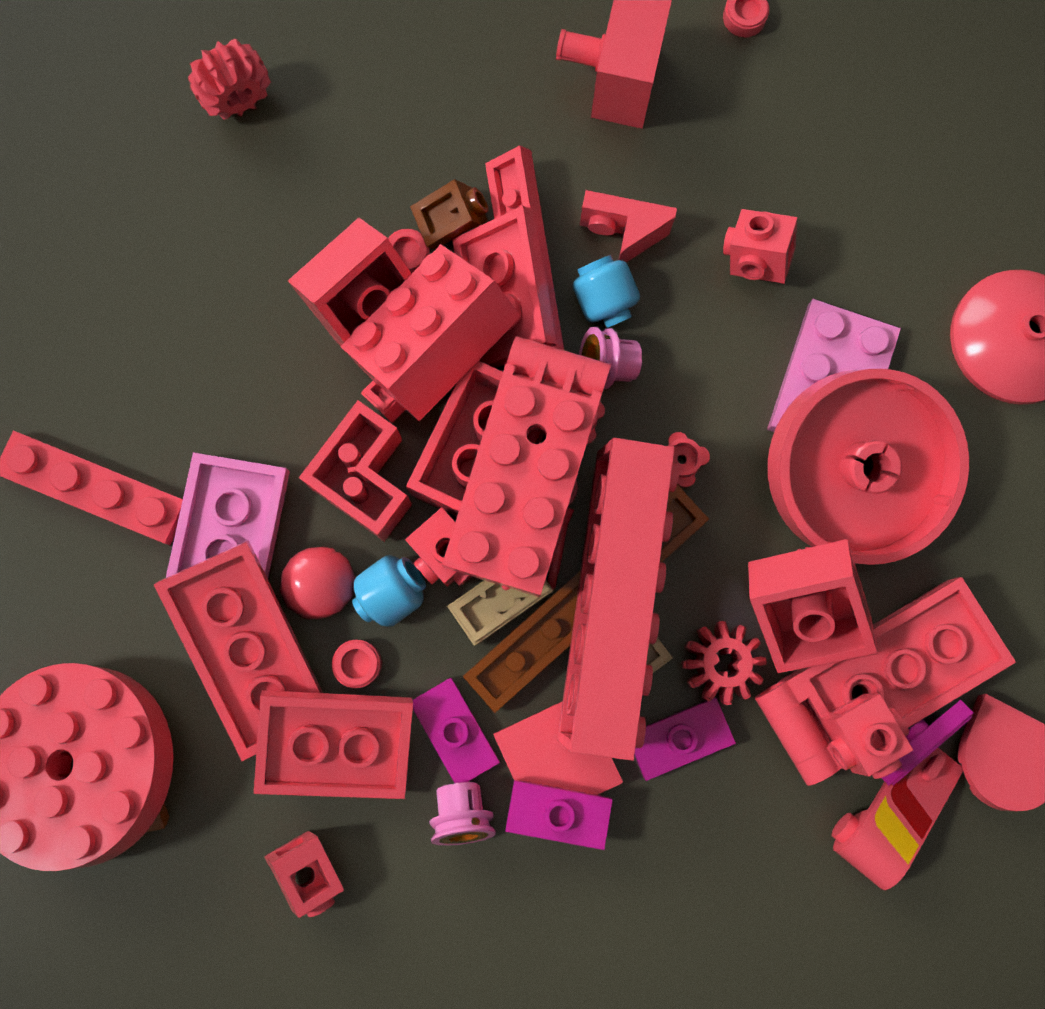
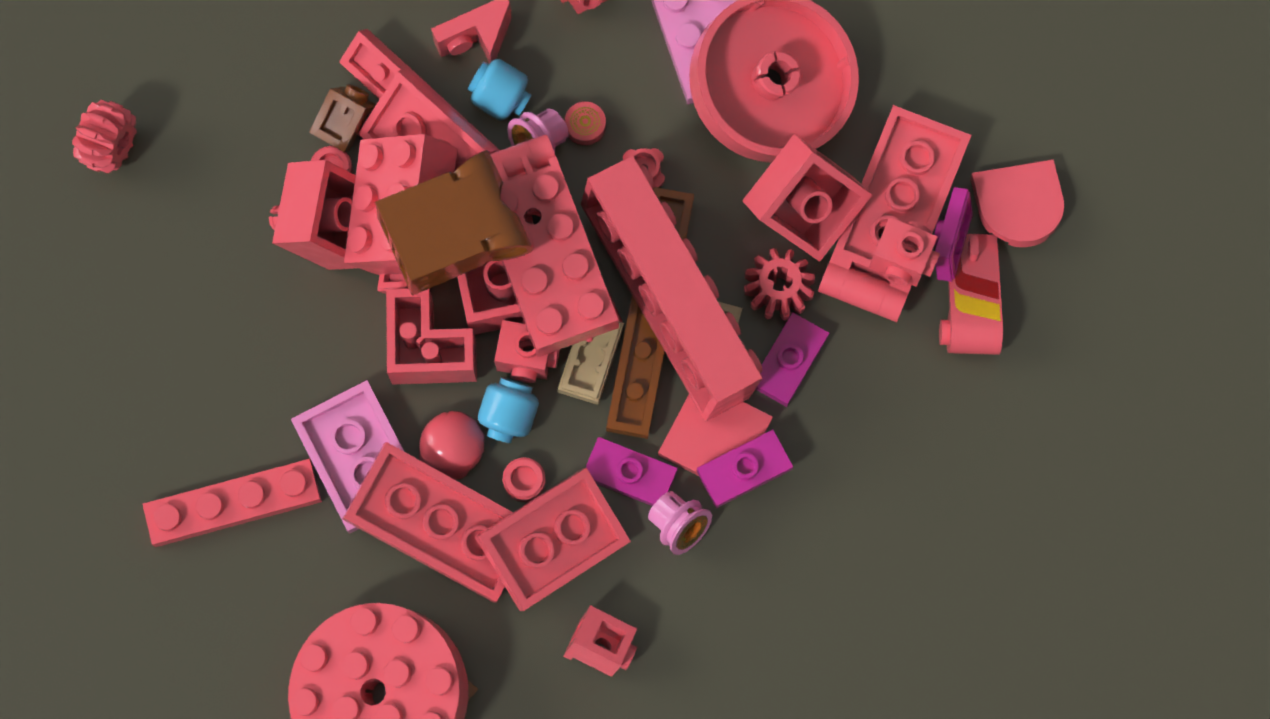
camera: 35 degrees left, 5 degrees down
(446, 385) = (451, 225): none -> dark orange piece
(661, 378) = (585, 123): none -> coral tile

